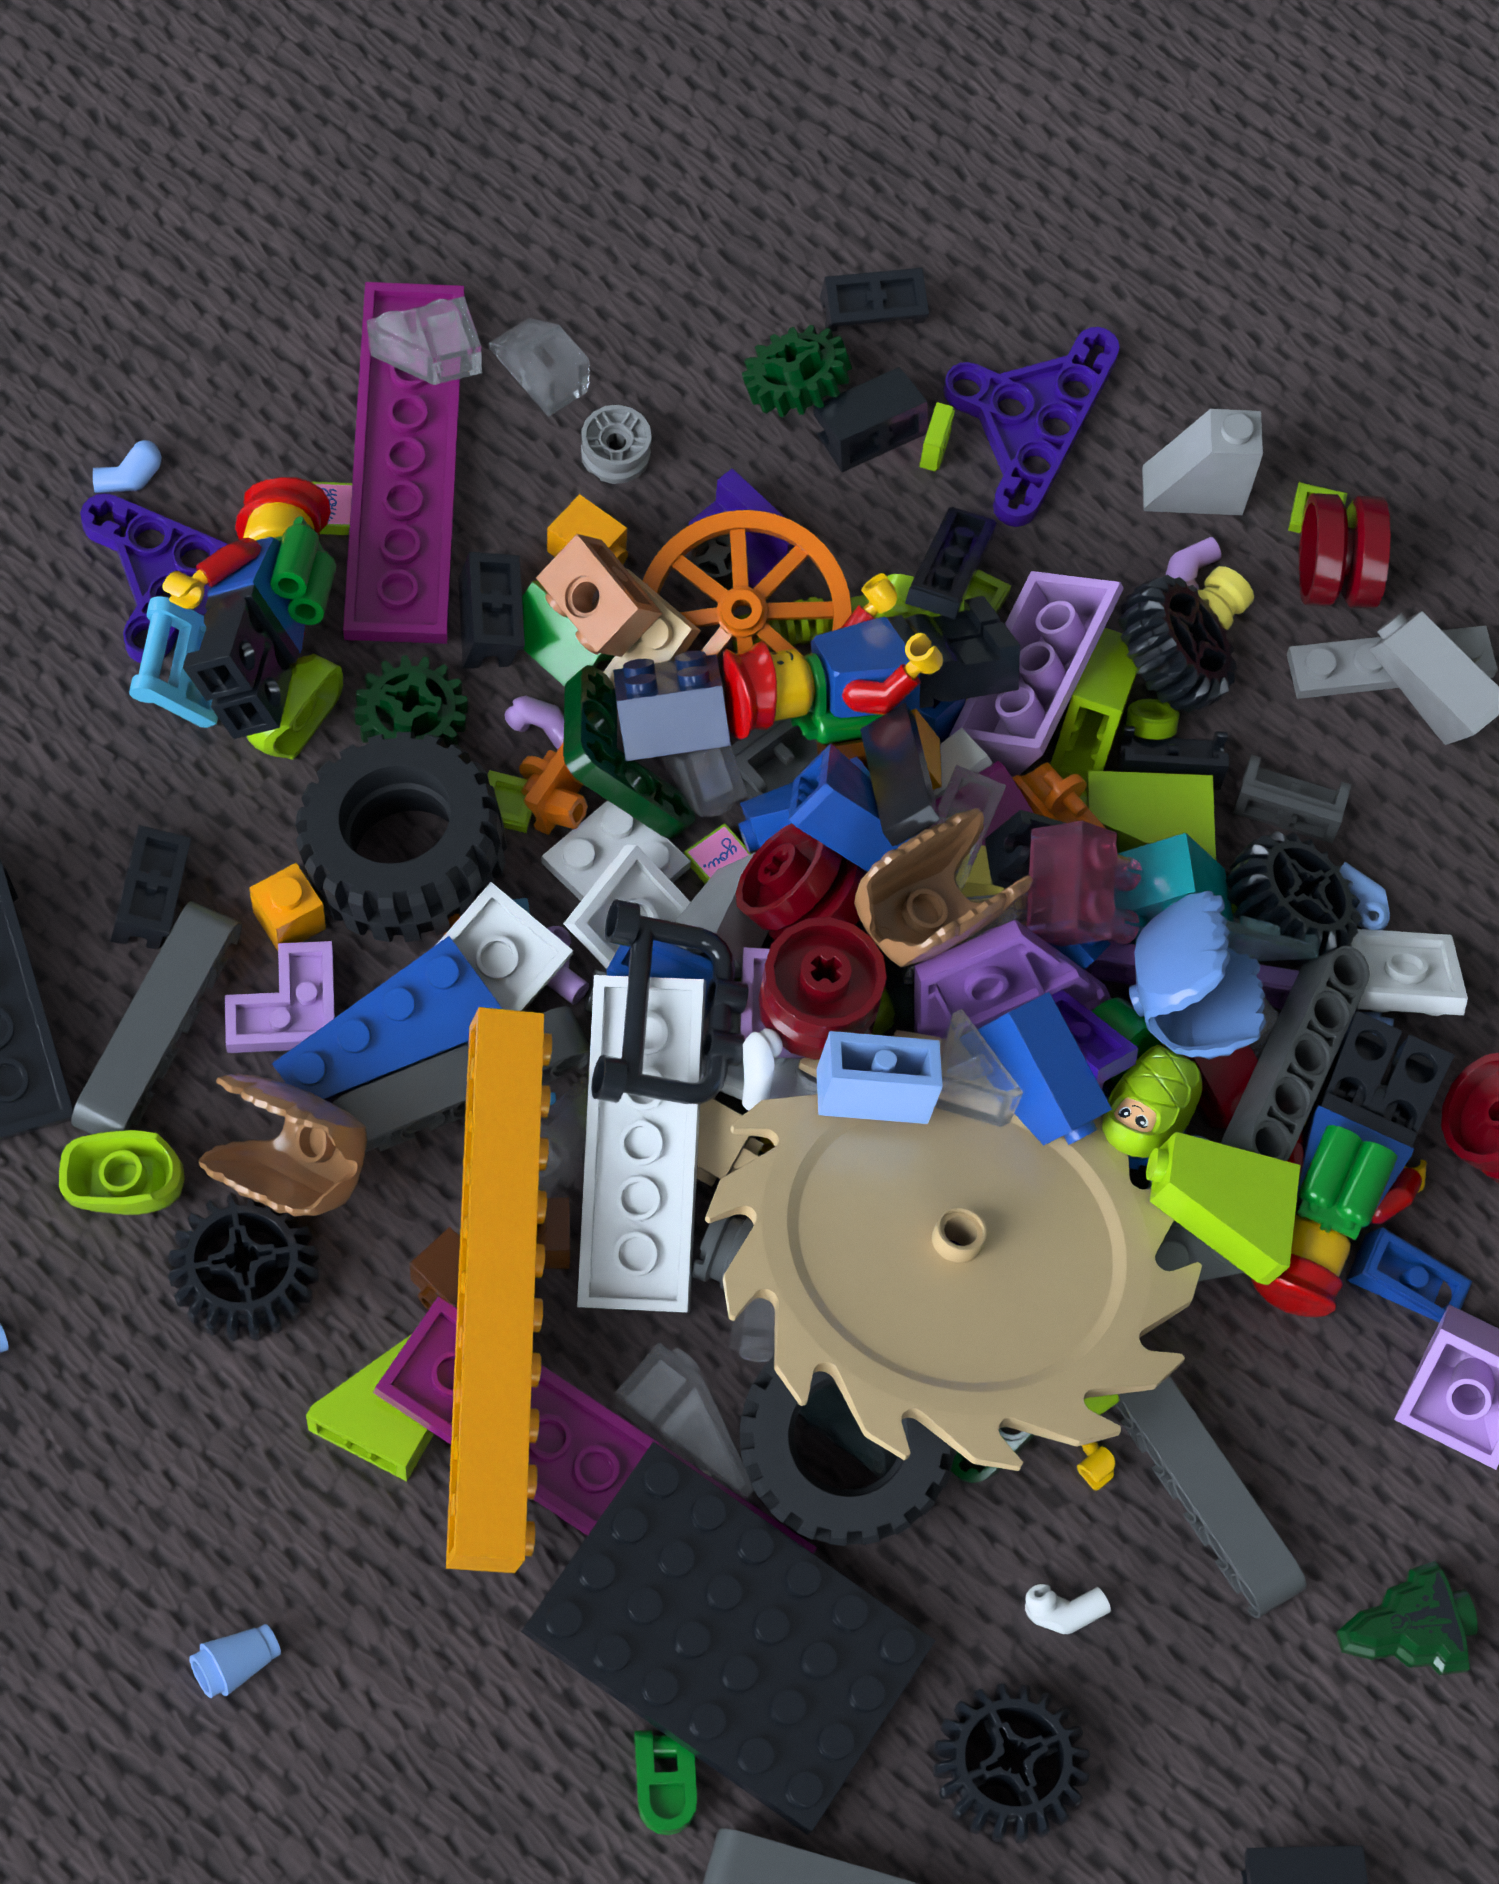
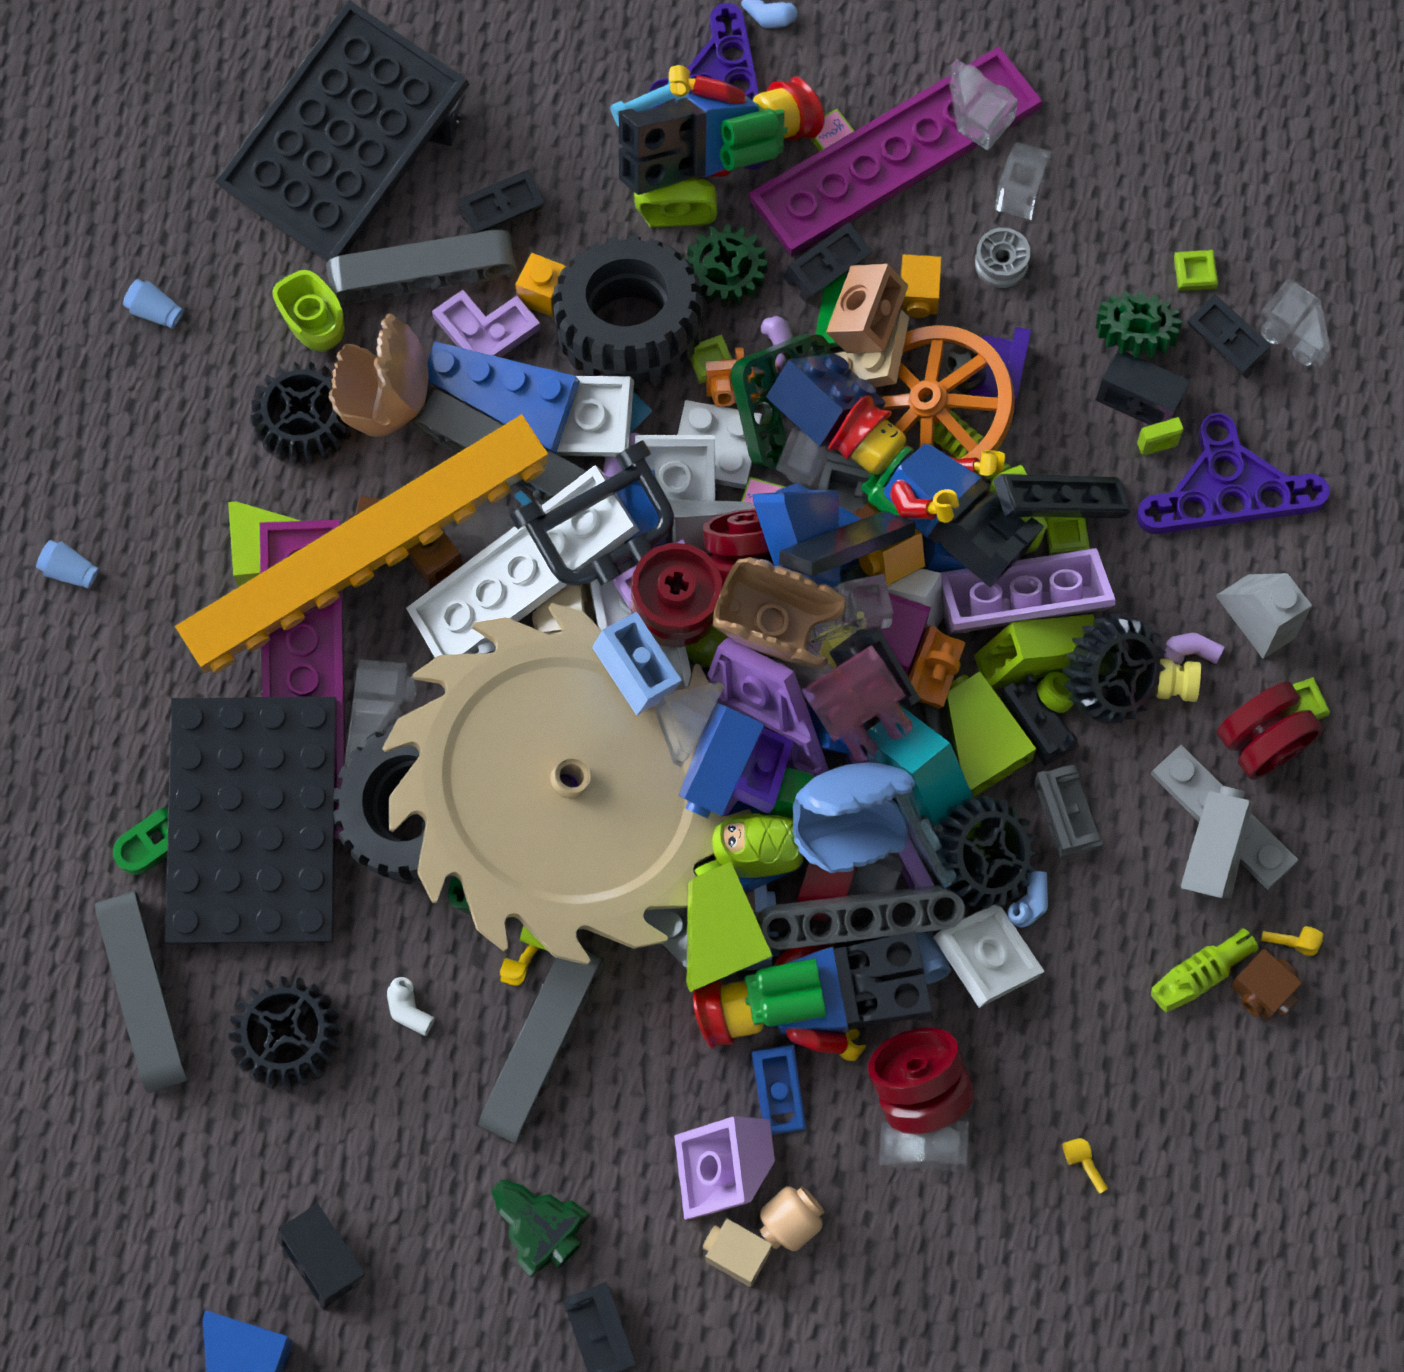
camera: 65 degrees right, 5 degrees up
(758, 1062) = (600, 597): white arm -> none
(767, 284) = (1195, 270): none -> lime tile
(905, 233) = (1298, 323): none -> clear slope

